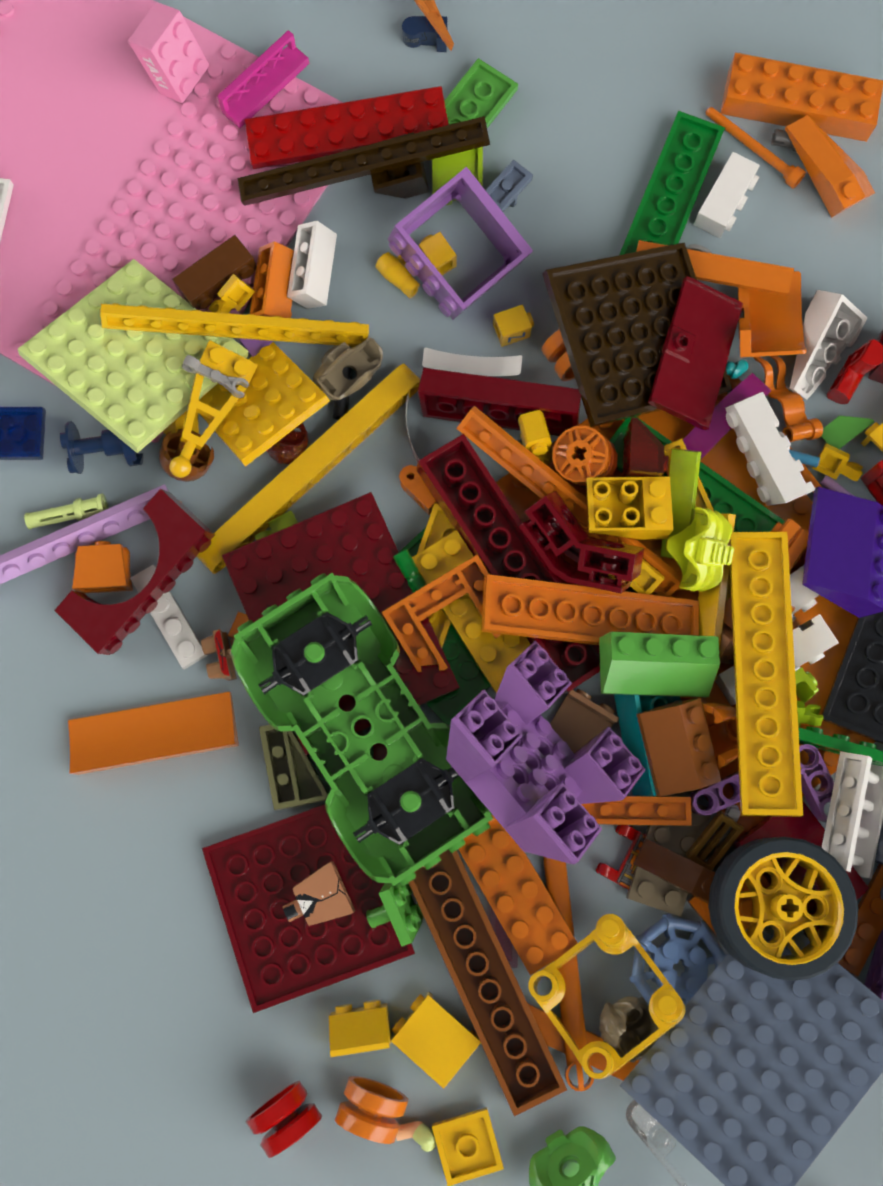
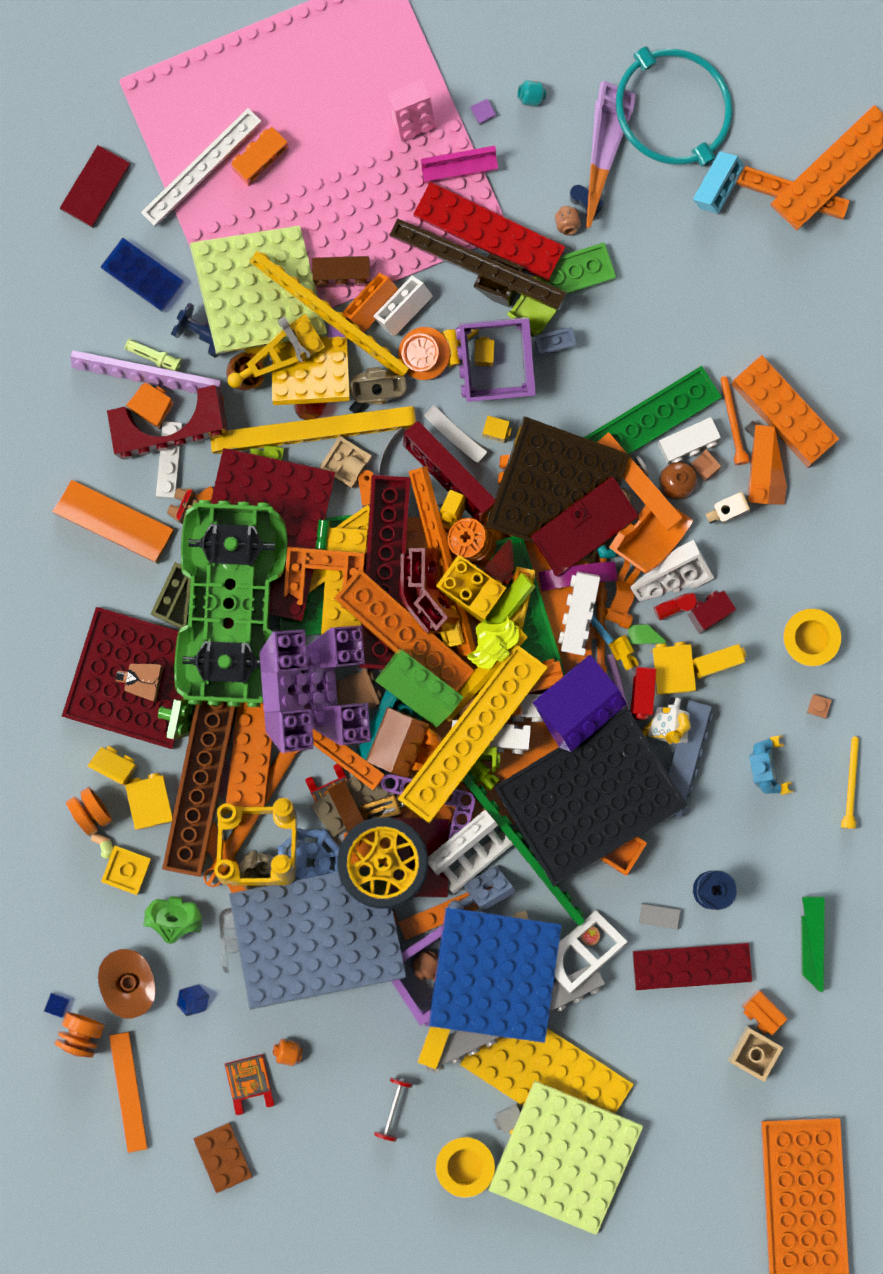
camera: 35 degrees right, 5 degrees up
(34, 217) = (259, 155): none -> orange brick
(233, 295) = (341, 292): yellow plate -> none
(248, 18) = (483, 111): none -> medium lavender tile
(286, 1122) = (39, 782): red wheel -> none
(373, 297) = (424, 353): none -> orange wheel
(373, 472) = (346, 461): none -> tan plate
(422, 62) = (567, 220): none -> nougat head
(748, 240) = (678, 480): none -> dark orange cylinder
(764, 208) = (705, 465): none -> nougat panel
(829, 230) = (737, 505): none -> torso

